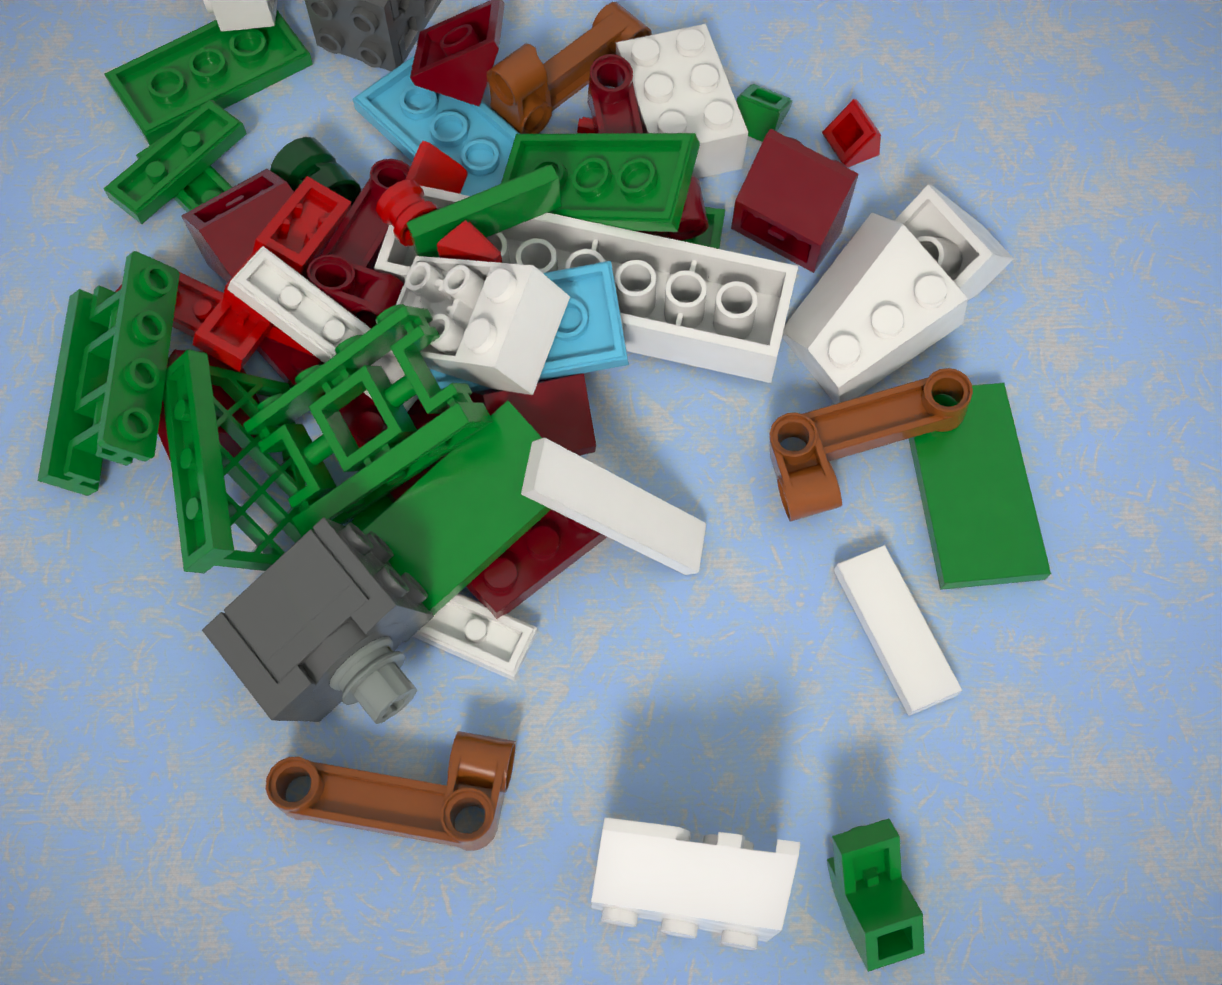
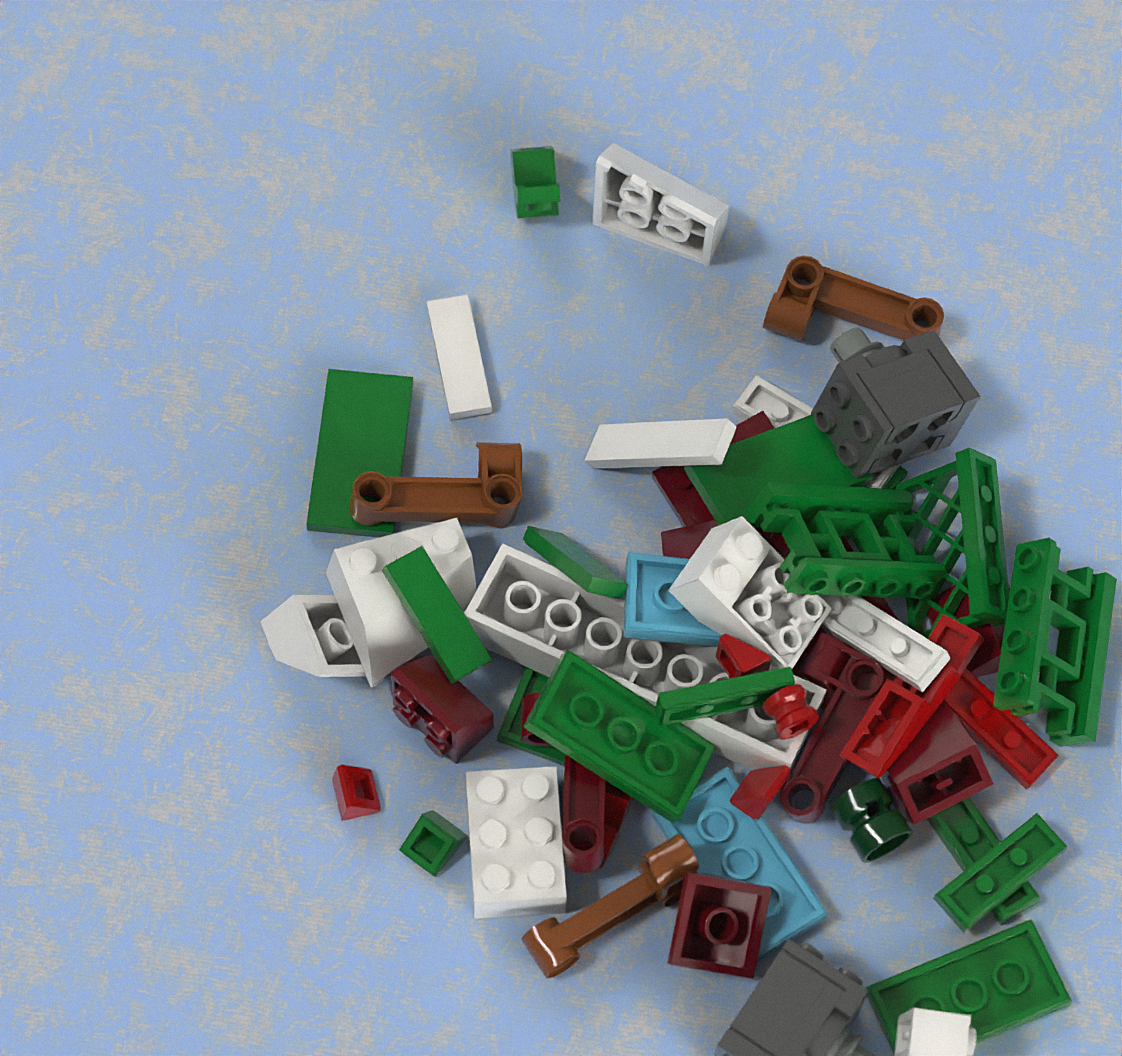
camera: 170 degrees left, 0 degrees up
(687, 358) = (575, 562): none -> green tile
(830, 258) = (436, 614): none -> green tile

